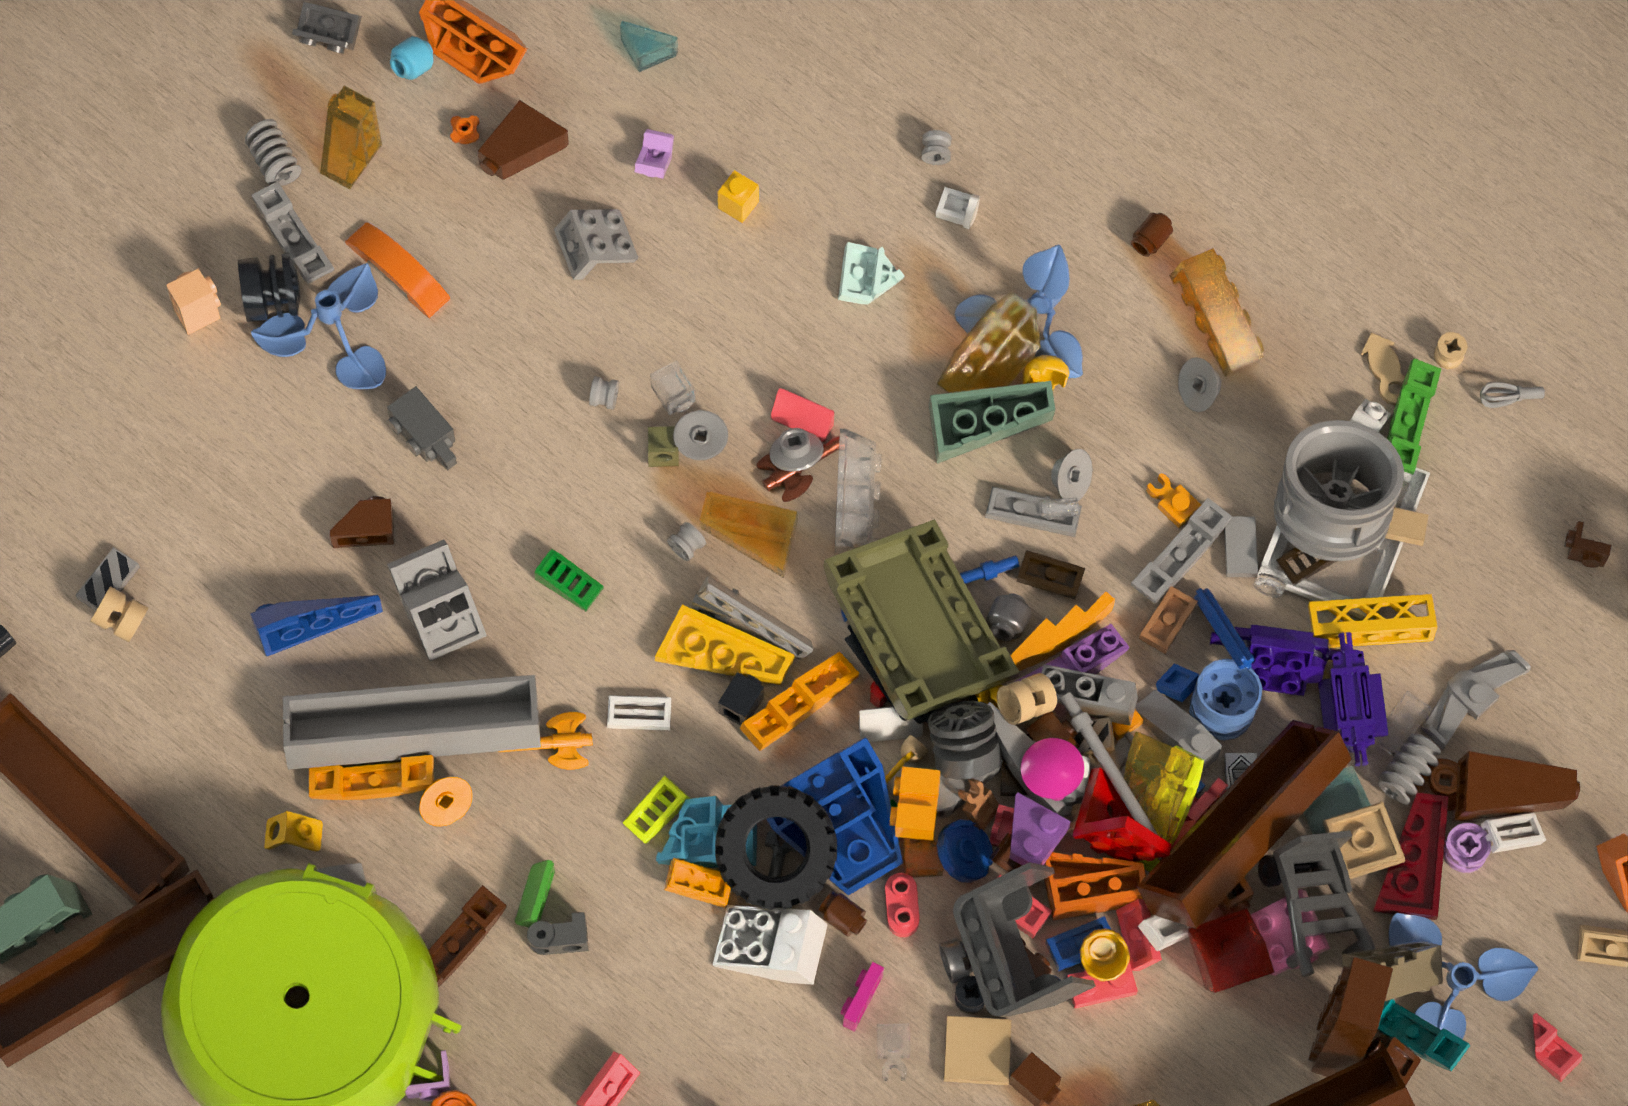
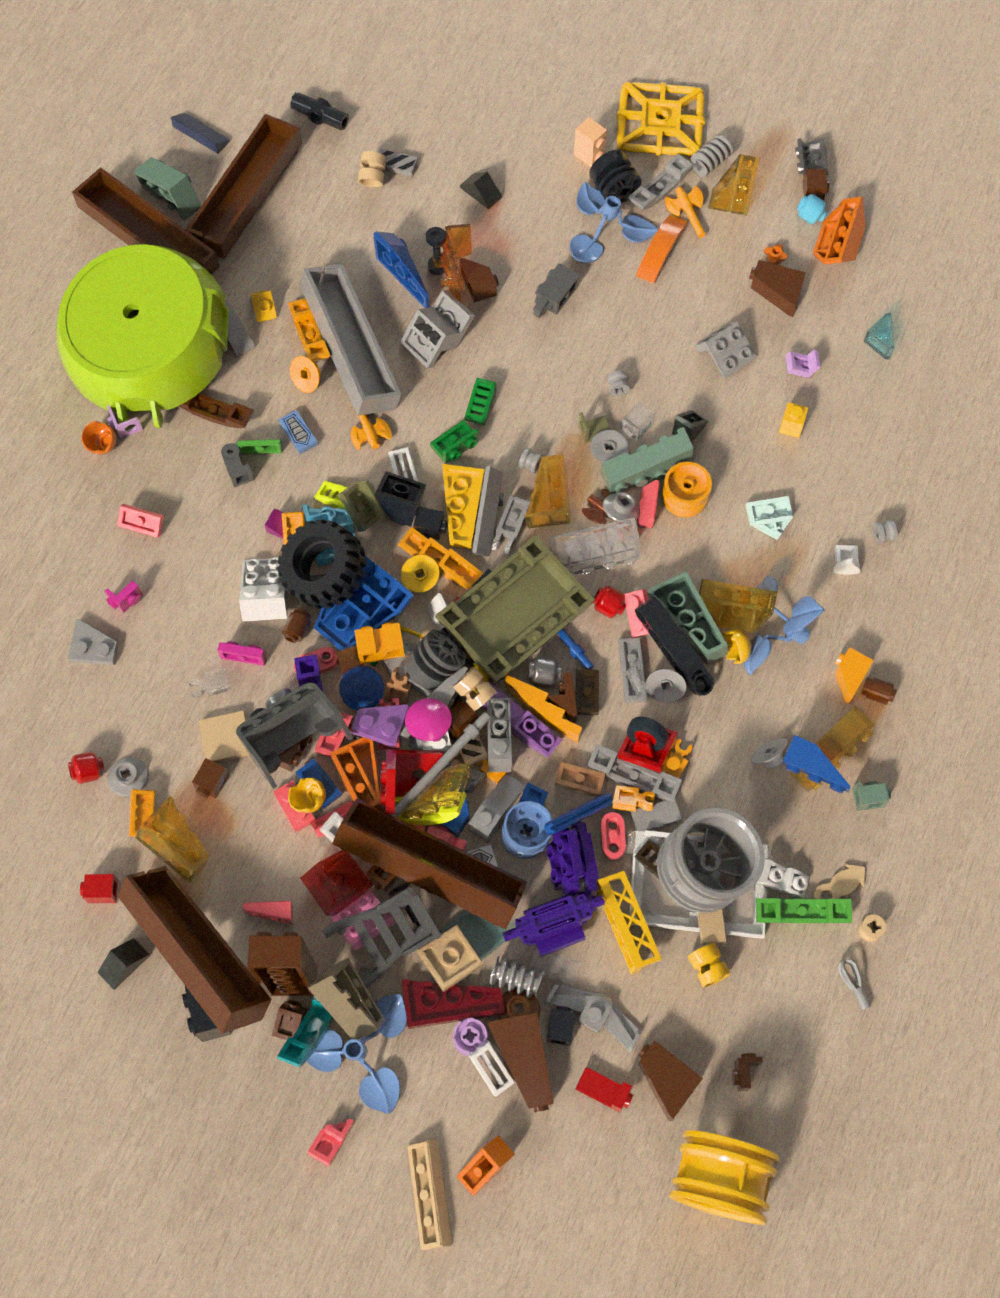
camera: 75 degrees right, 0 degrees up
(179, 215) = (661, 127): none -> yellow plate
(203, 475) = (482, 189): none -> pearl dark grey slope
(308, 537) = (455, 244): none -> clear orange hand
(333, 213) = (685, 202): none -> light orange piece
(372, 40) = (815, 183): none -> reddish brown brick
(531, 838) = (298, 432): none -> tile
(624, 630) = (455, 441): none -> green bracket
(673, 904) = (274, 523): none -> magenta slope
(690, 773) = (362, 504): none -> olive bracket
(693, 721) = (400, 497): none -> black slope
(700, 326) = (691, 422): none -> pearl dark grey slope
(746, 393) = (646, 462): none -> sand green wedge
(773, 595) = (511, 522): none -> light grey hinge
(802, 358) = (686, 489): none -> light orange wheel
(817, 716) = (415, 566): none -> yellow piece
(929, 918) = (308, 670): none -> dark purple slope
(932, 504) = (609, 601): none -> red head
(963, 474) = (632, 601): none -> coral plate
(1026, 445) = (675, 646): none -> black piece
(1057, 599) = (566, 699): none -> reddish brown slope
(1120, 256) = (851, 671): none -> light orange slope
(1148, 523) = (647, 744): none -> plate
(1213, 569) = (629, 799): none -> light orange plate
(1236, 335) = (809, 759): none -> blue slope
(1245, 1035) = (277, 911): none -> coral slope
(1254, 603) = (613, 836): none -> coral plate
(1286, 292) = (871, 795): none -> sand green brick
(1440, 546) = (705, 957): none -> yellow wheel
(1480, 735) = (560, 1026): none -> black brick
(1571, 709) = (604, 1090): none -> red bracket
(1575, 636) = (668, 1078): none -> reddish brown slope

